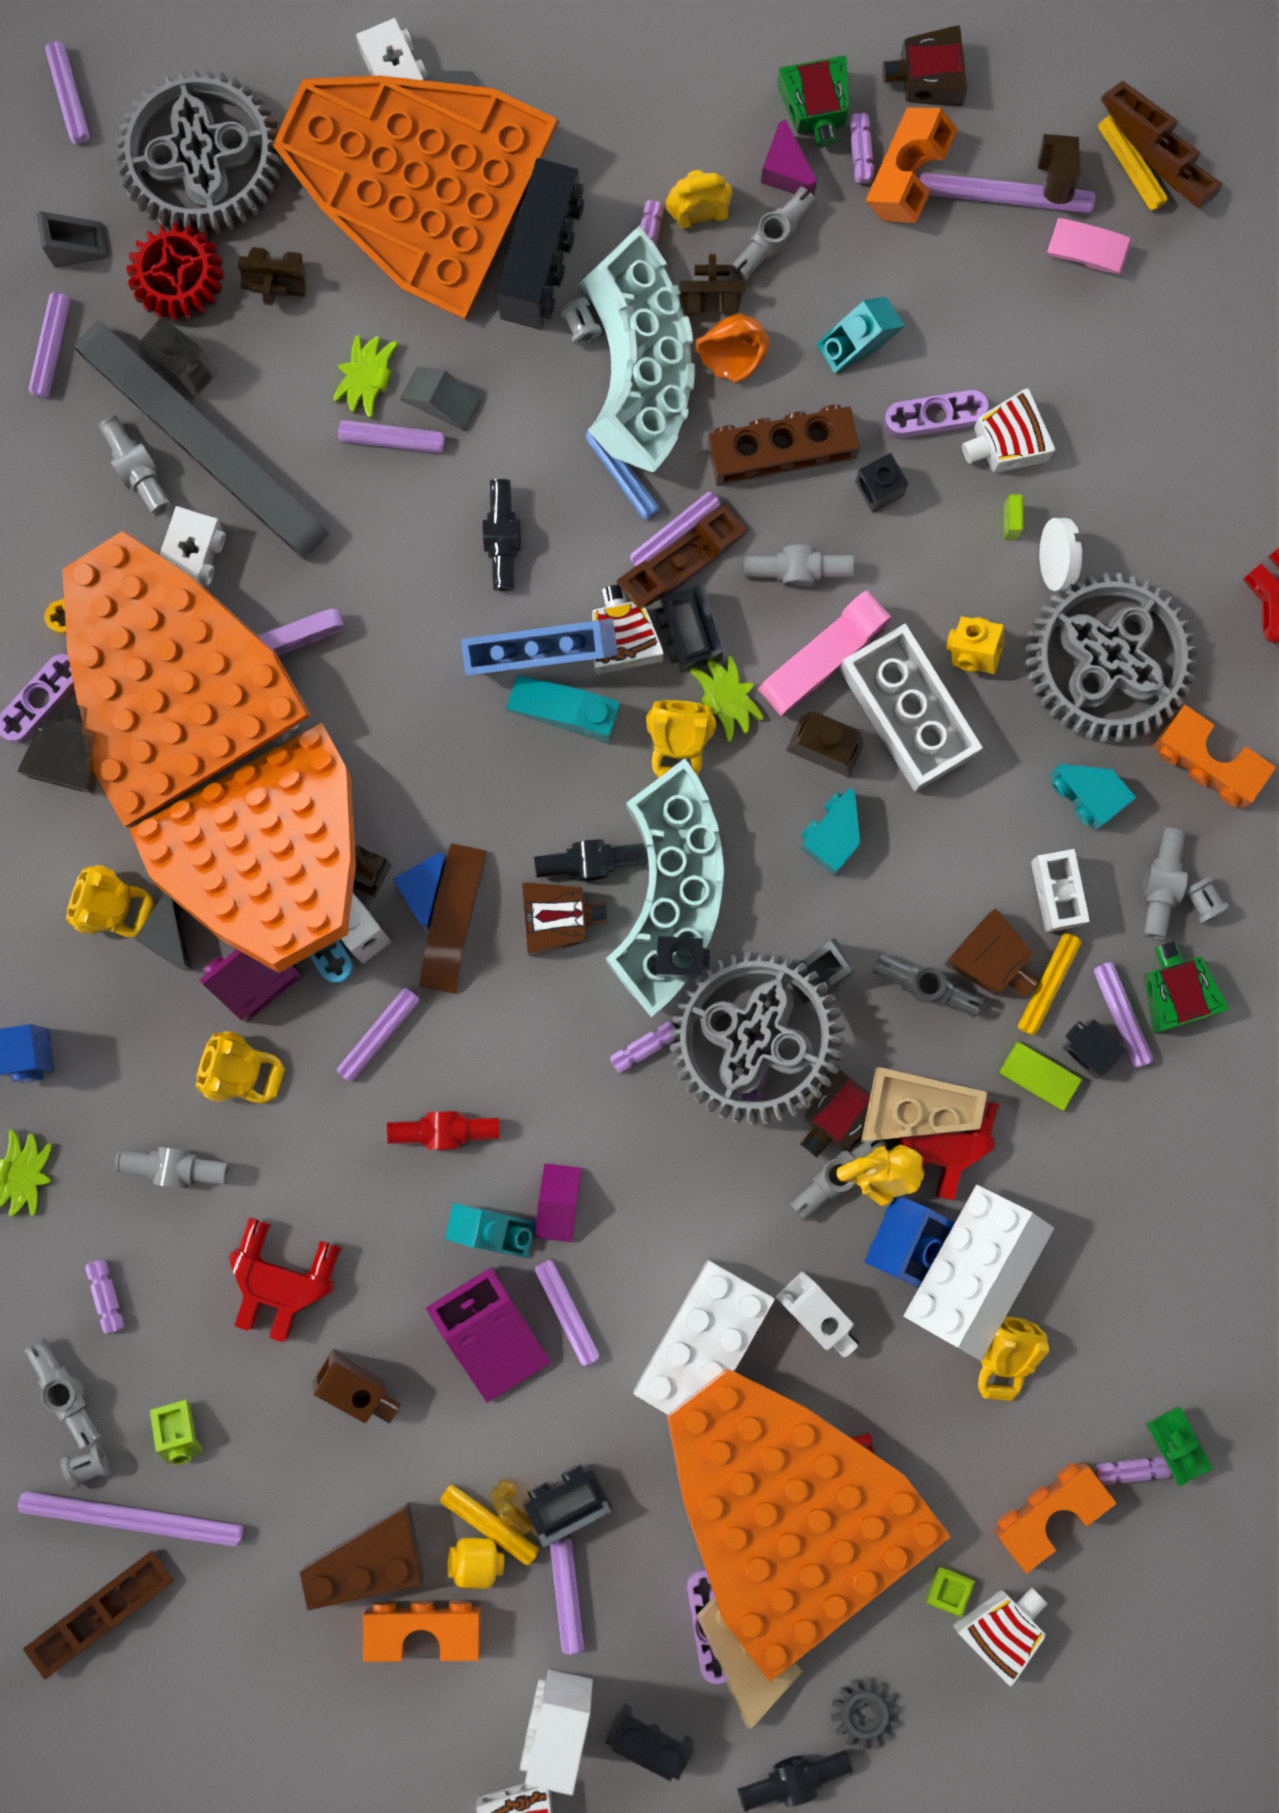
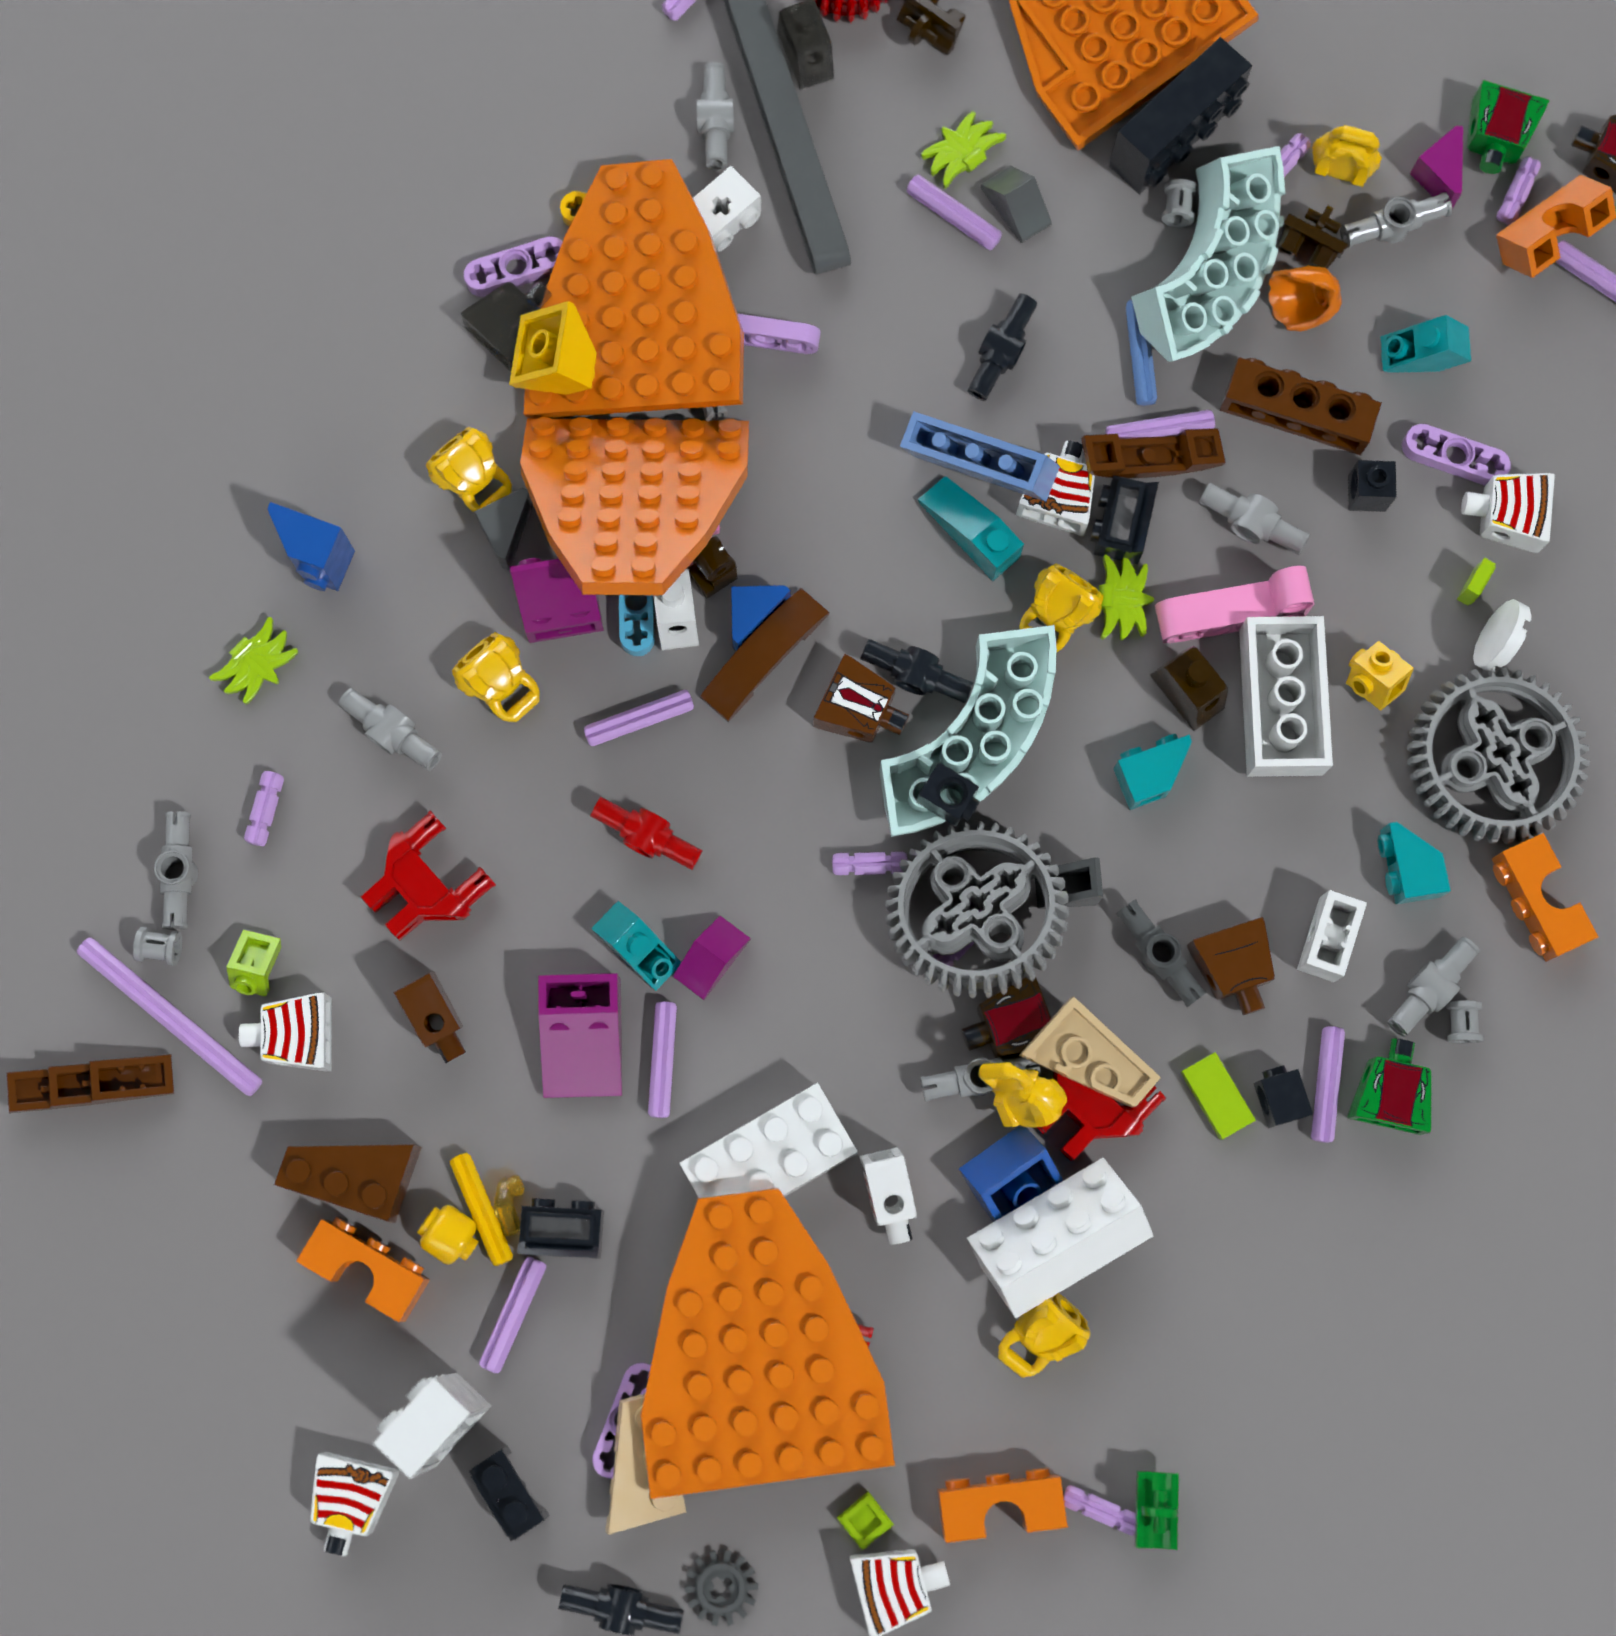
camera: 30 degrees right, 5 degrees down
(120, 762) = (553, 351): none -> yellow slope
(245, 1472) = (293, 1032): none -> white torso
(1049, 984) = (1274, 1017): yellow axle -> none

